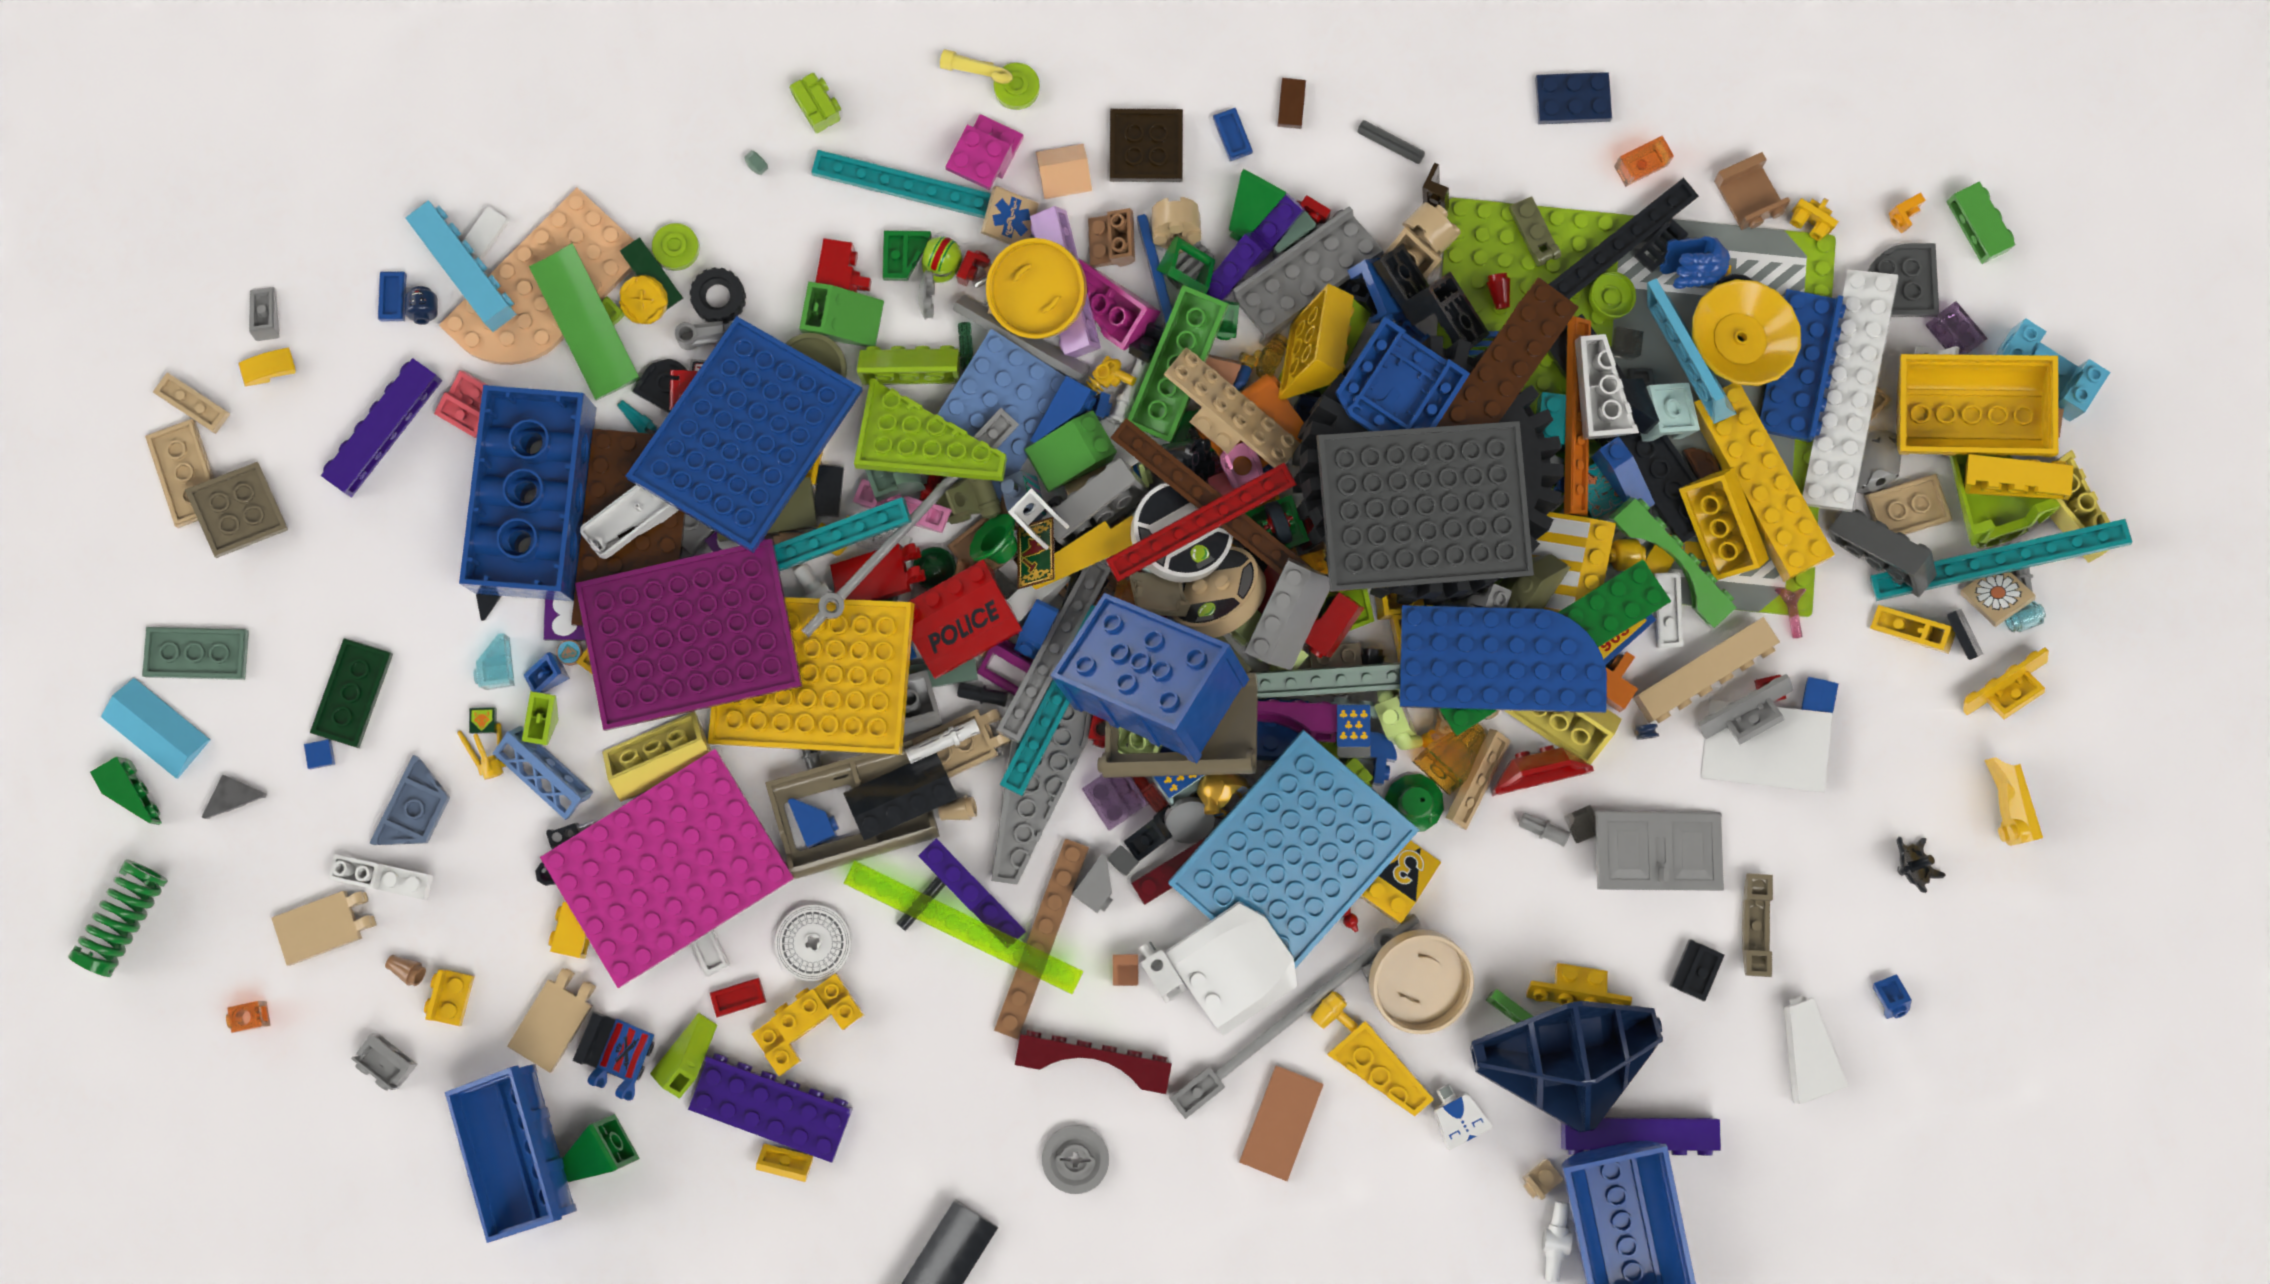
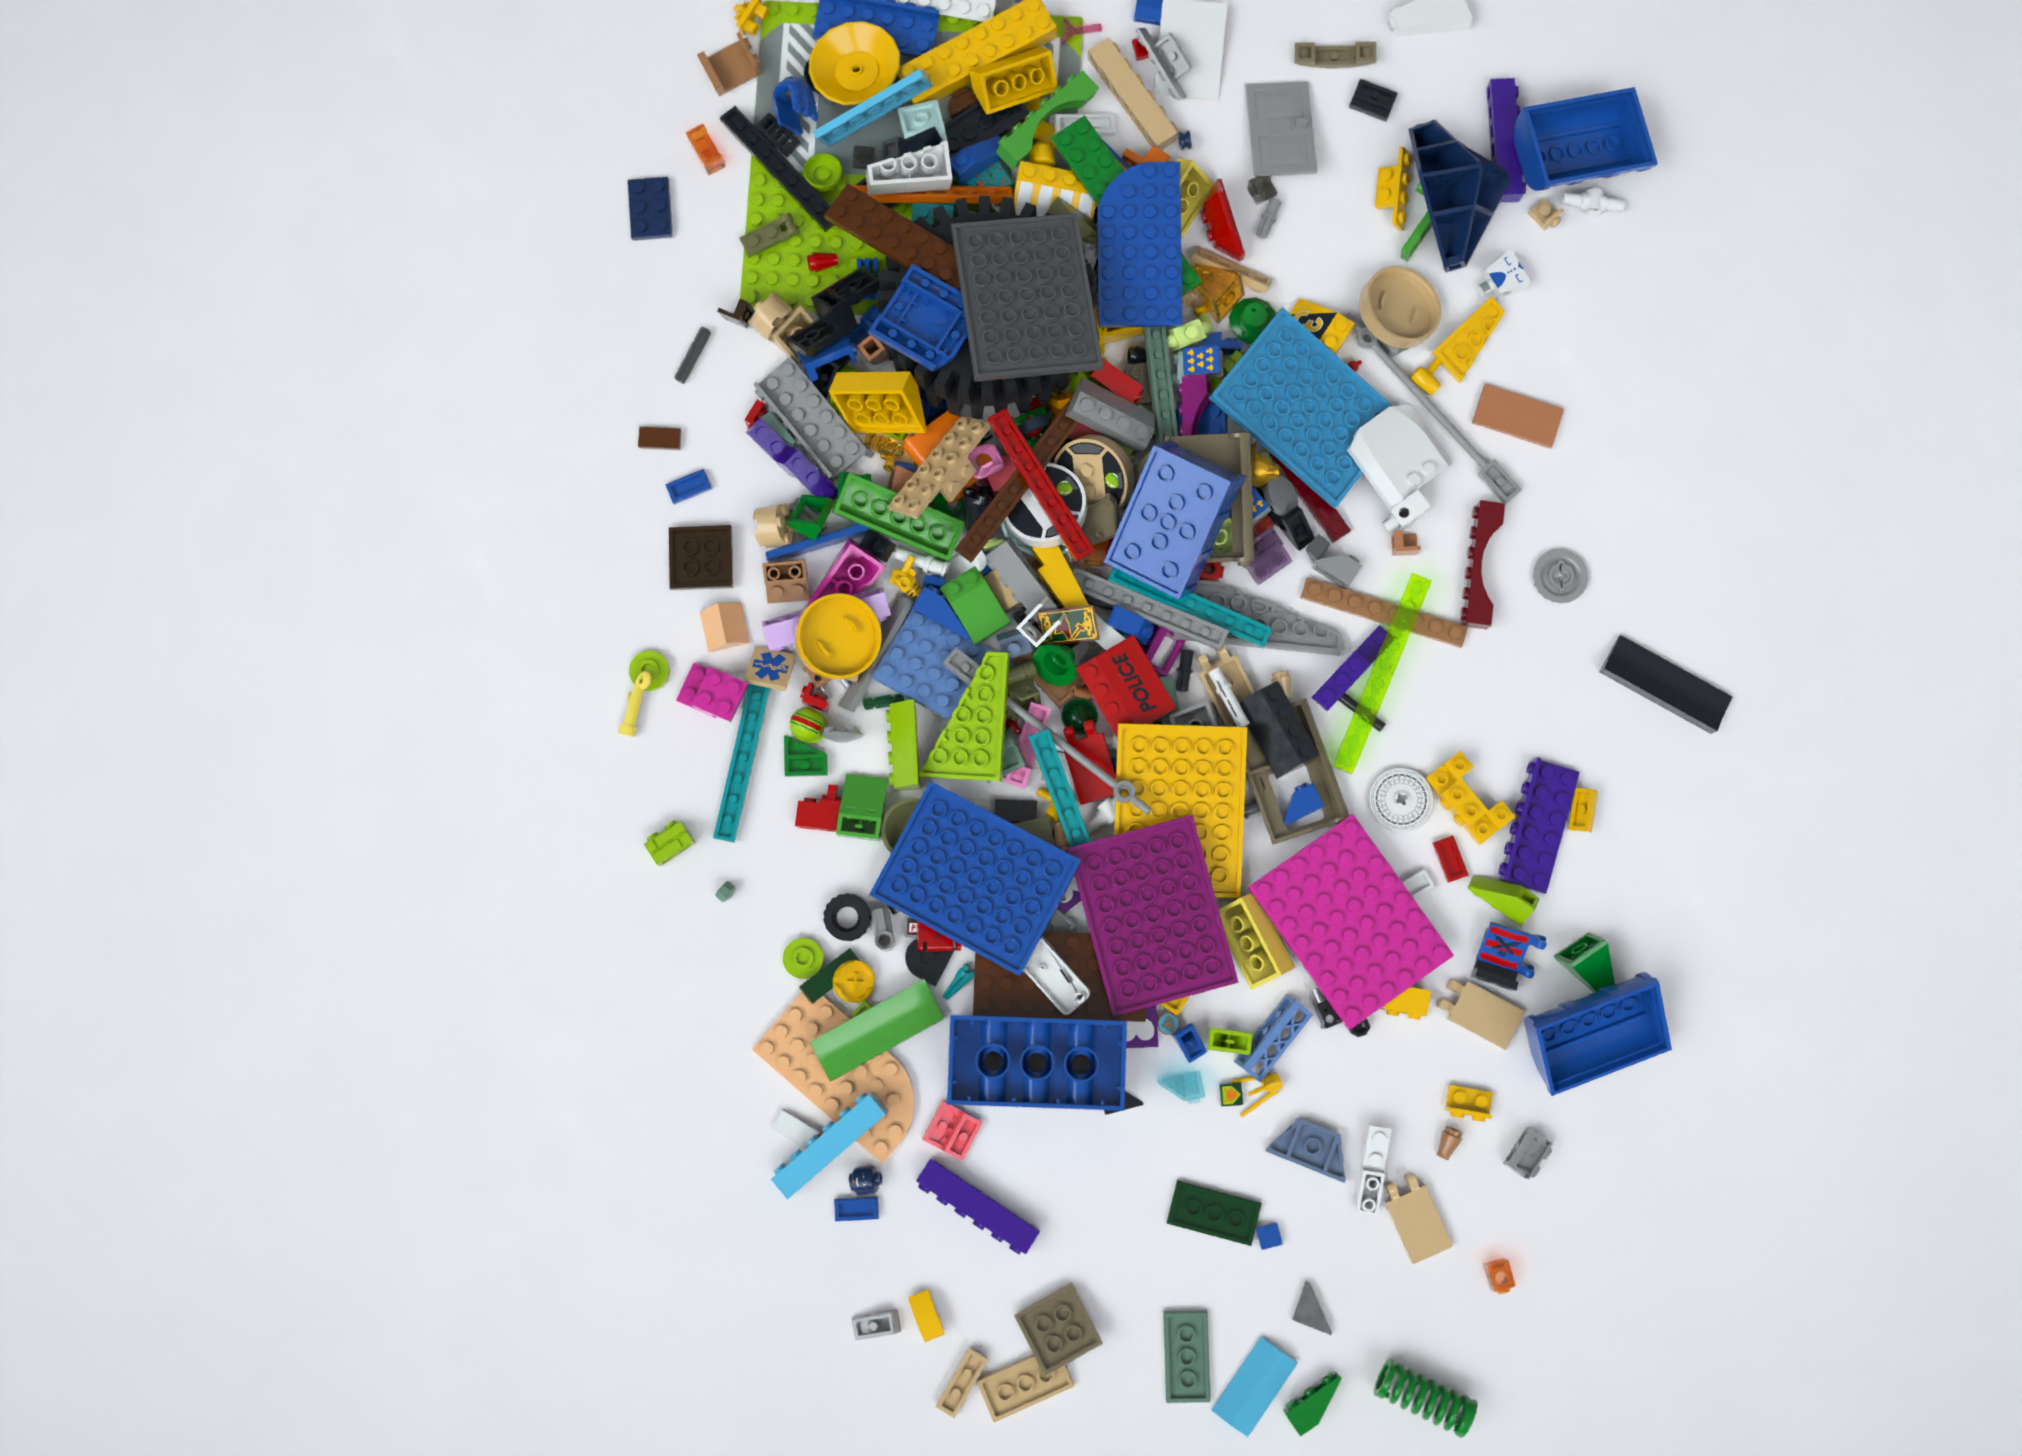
camera: 90 degrees left, 0 degrees up
(1252, 204) = (754, 463): green slope -> none

